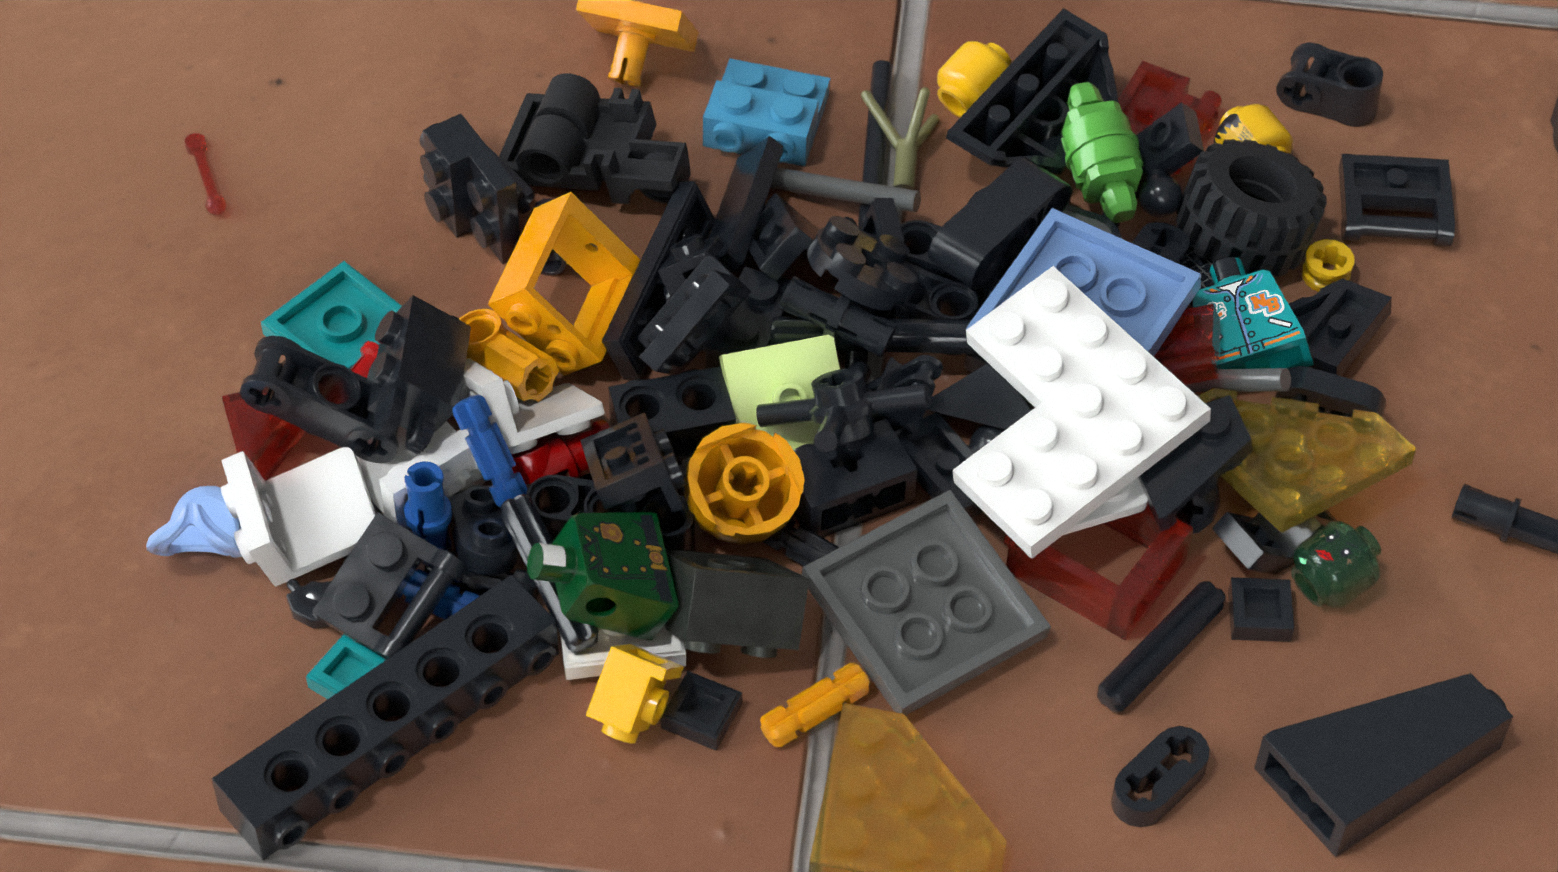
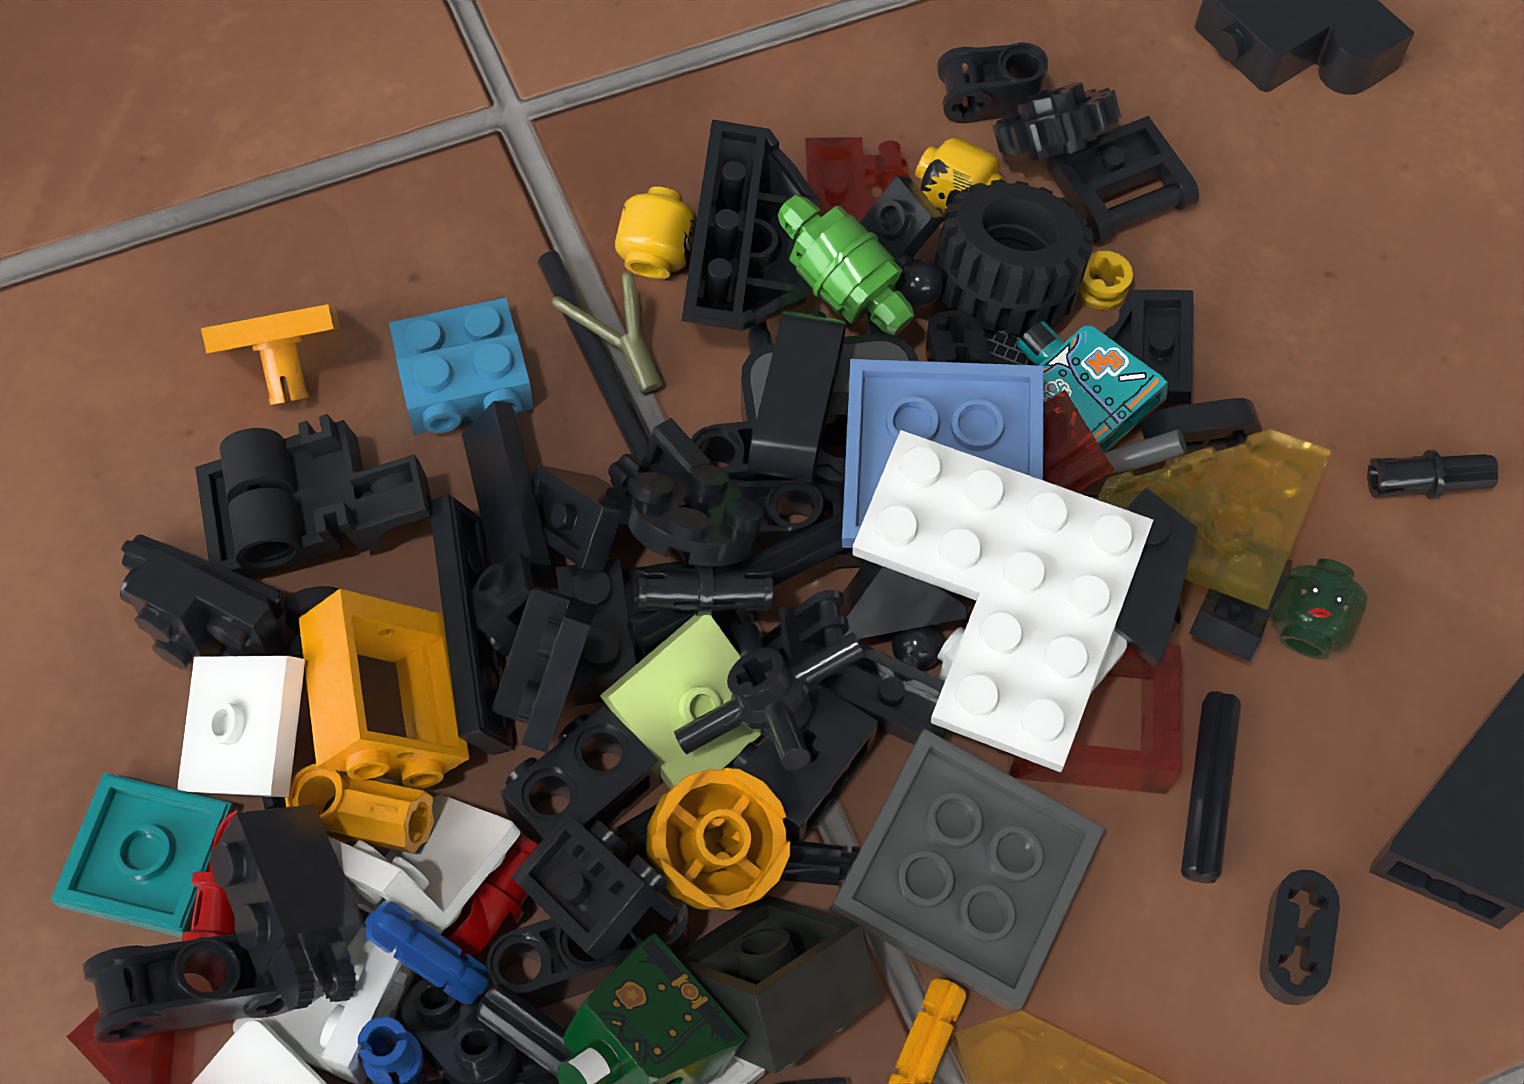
camera: 30 degrees left, 10 degrees up
(456, 261) = (241, 725): none -> white plate
(844, 189) = (604, 420): dark grey bar -> none
(1260, 609) = (1273, 692): black tile -> none
(1358, 127) = (1057, 121): none -> black gear

